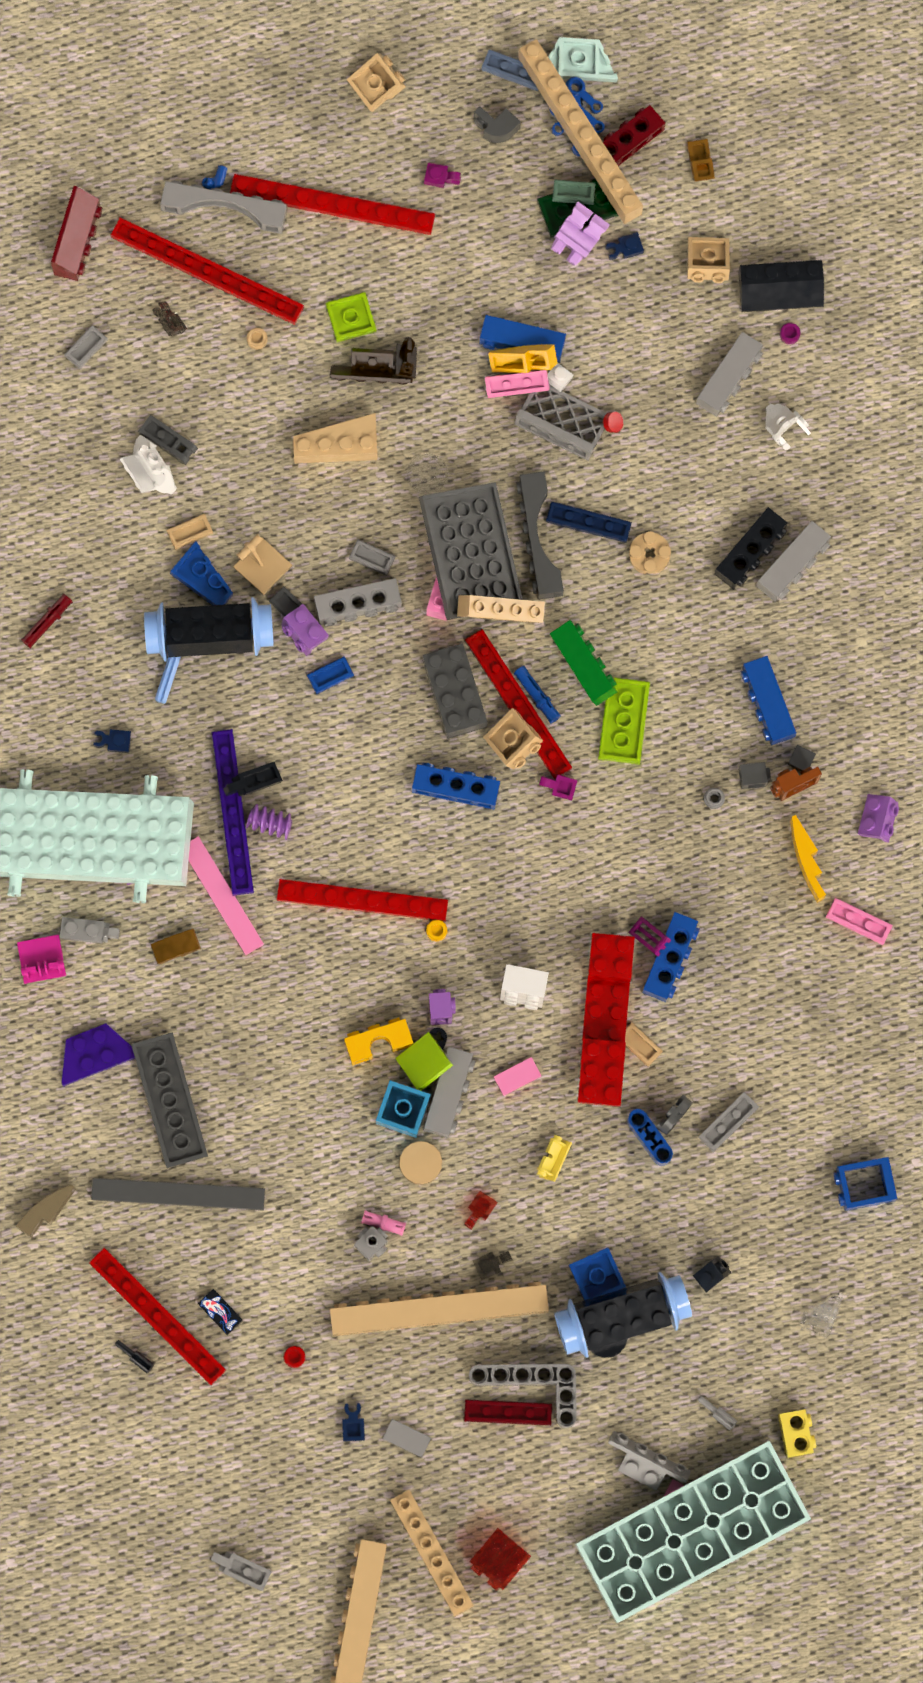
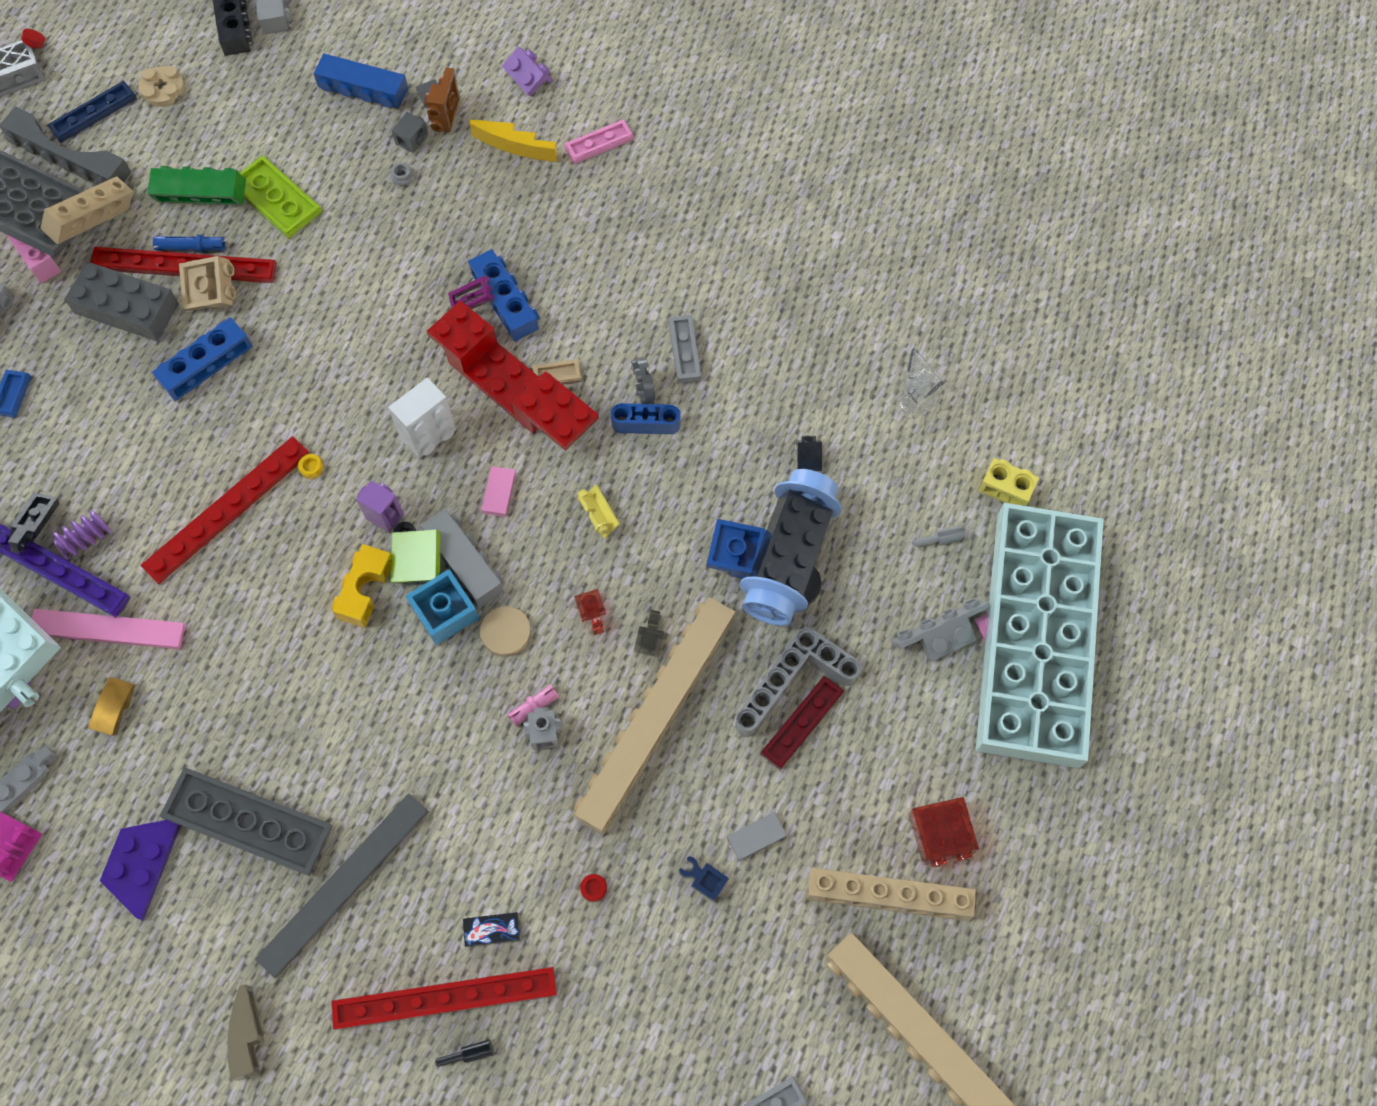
camera: 50 degrees left, 10 degrees down
(562, 787) = (282, 276): magenta plate -> none
(887, 1180) = (835, 262): blue window -> none

